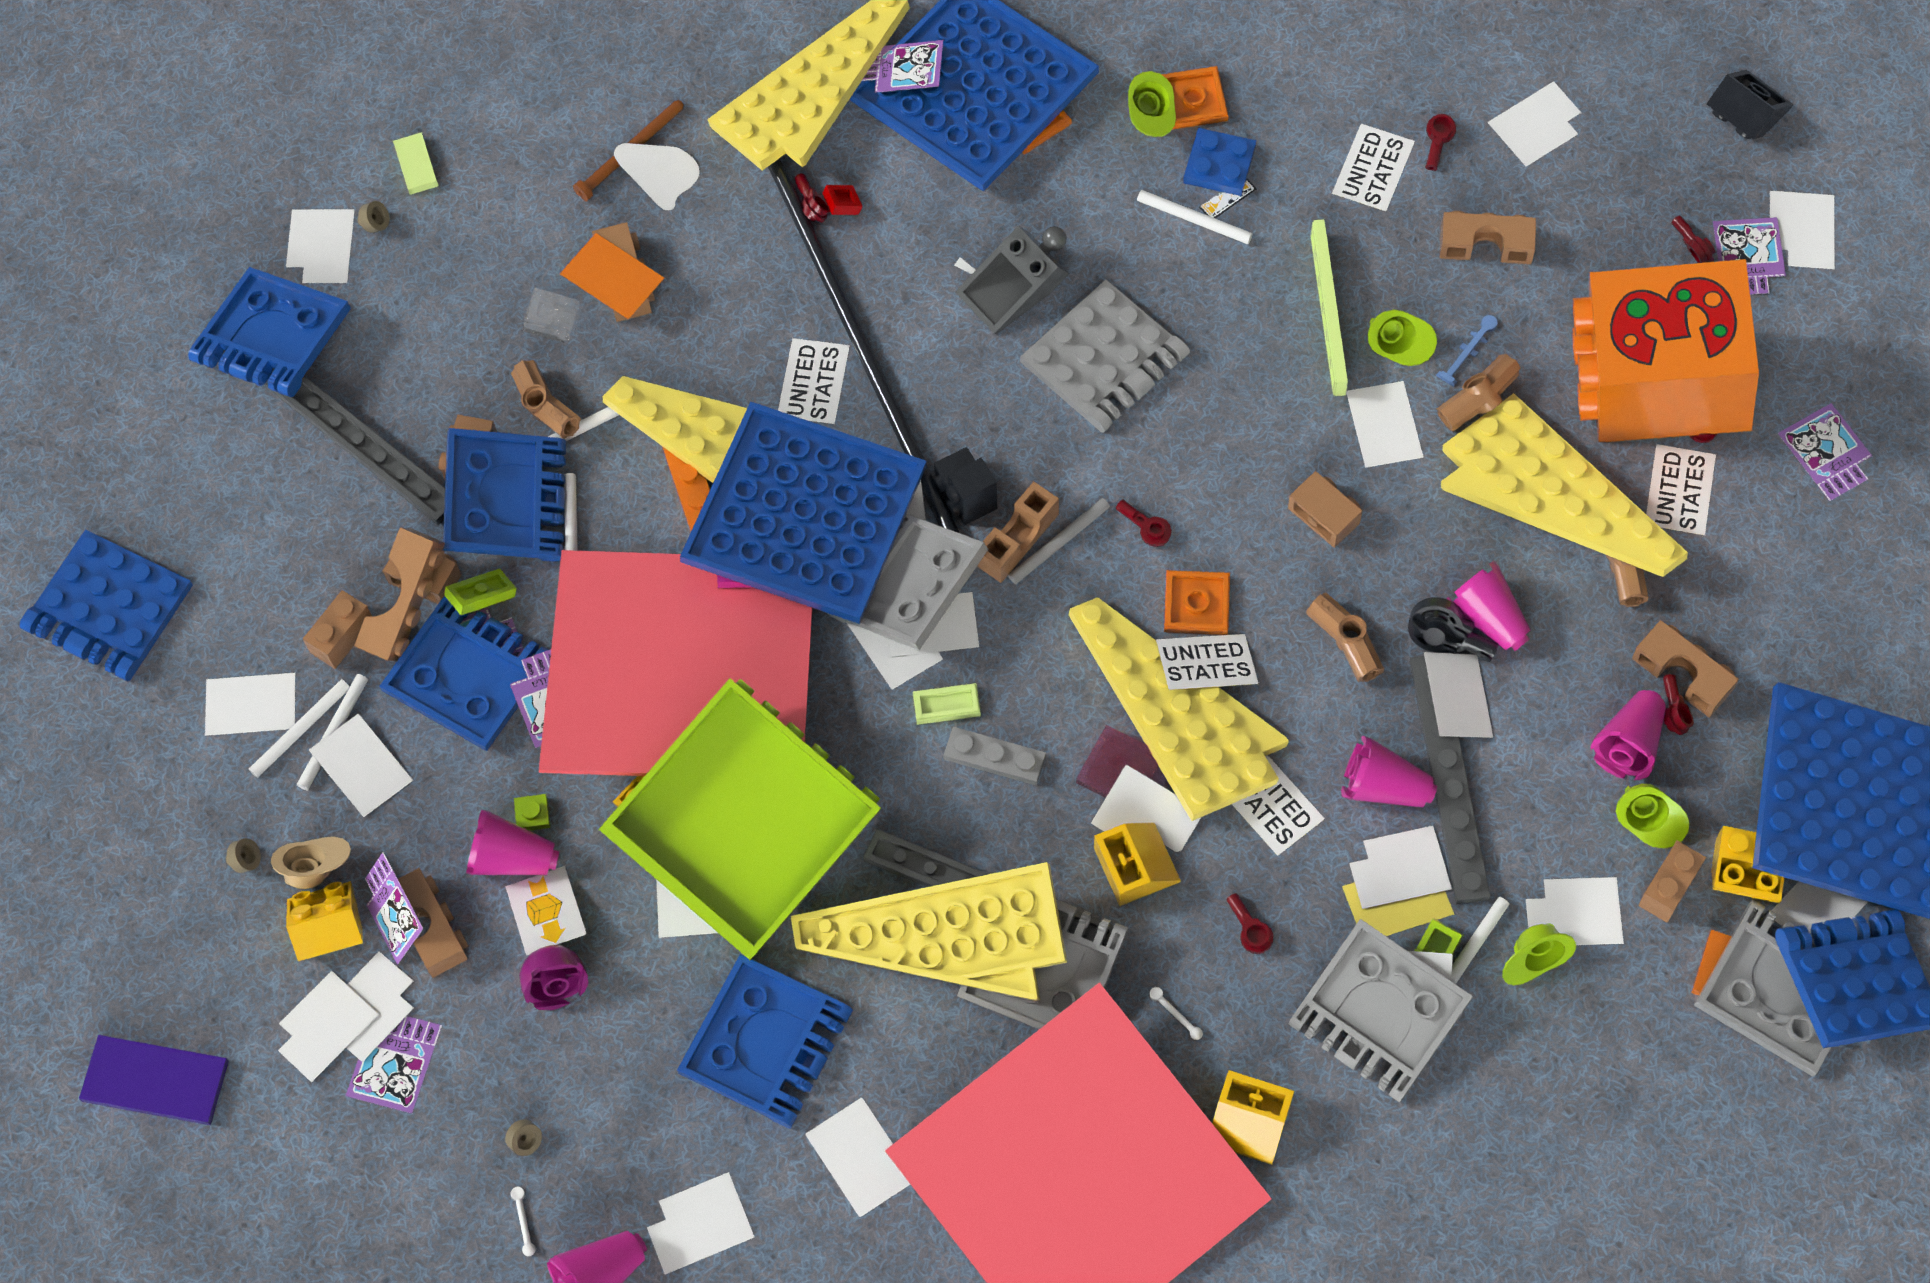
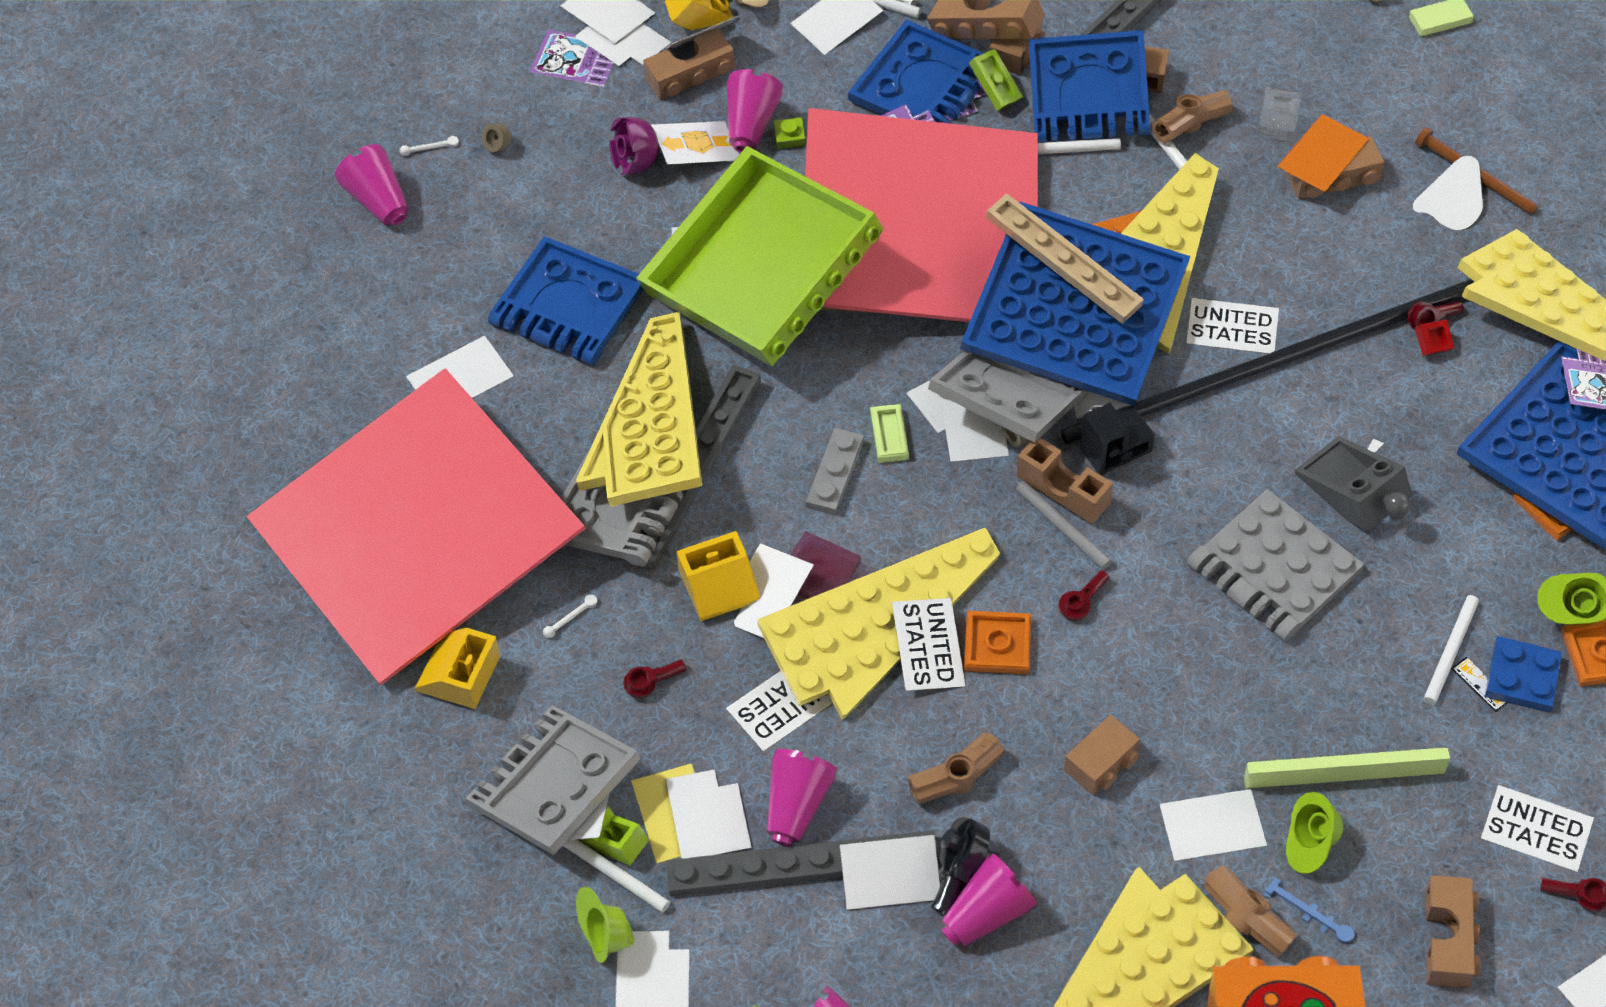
camera: 90 degrees right, 10 degrees down
(699, 1223) = (414, 265): white sticker -> none
(760, 513) = (1064, 258): none -> tan plate

